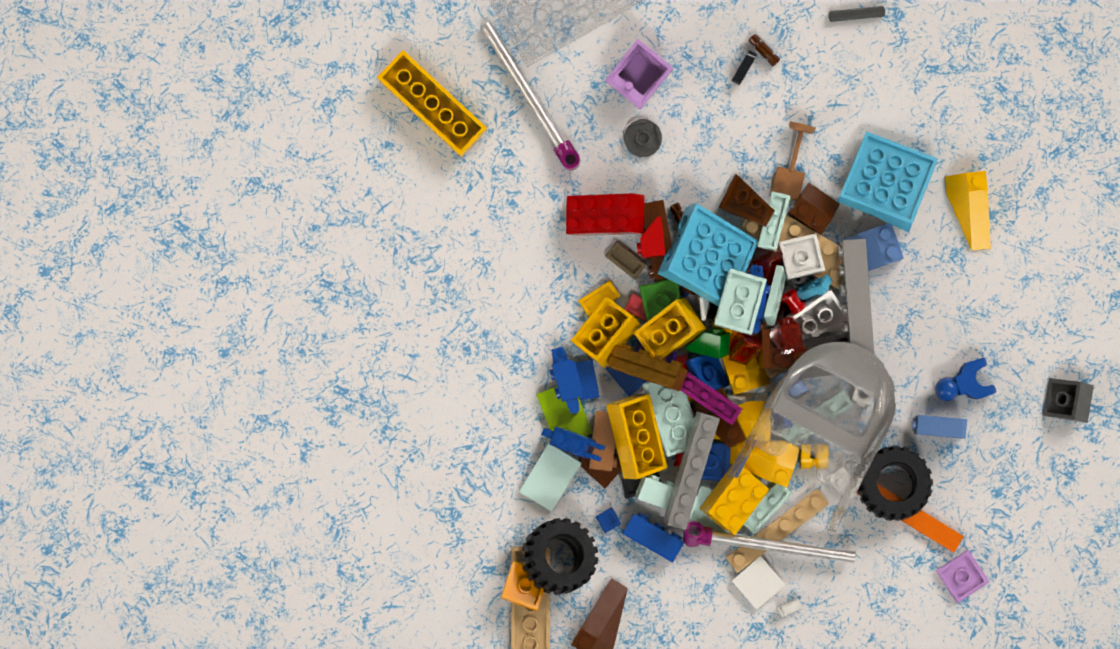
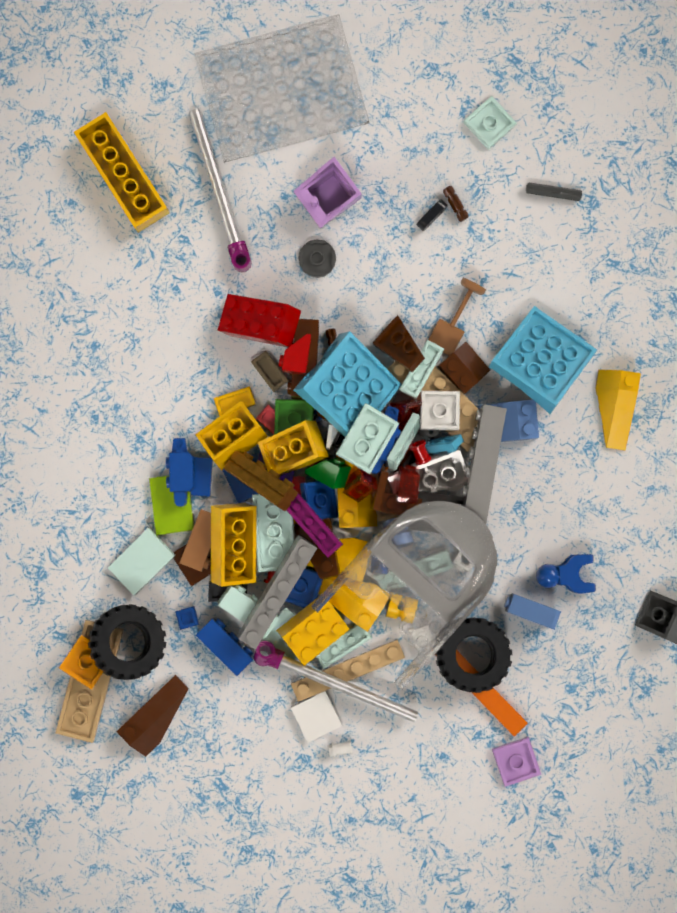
camera: 15 degrees right, 0 degrees up
(573, 442) = (170, 534): blue hinge -> none

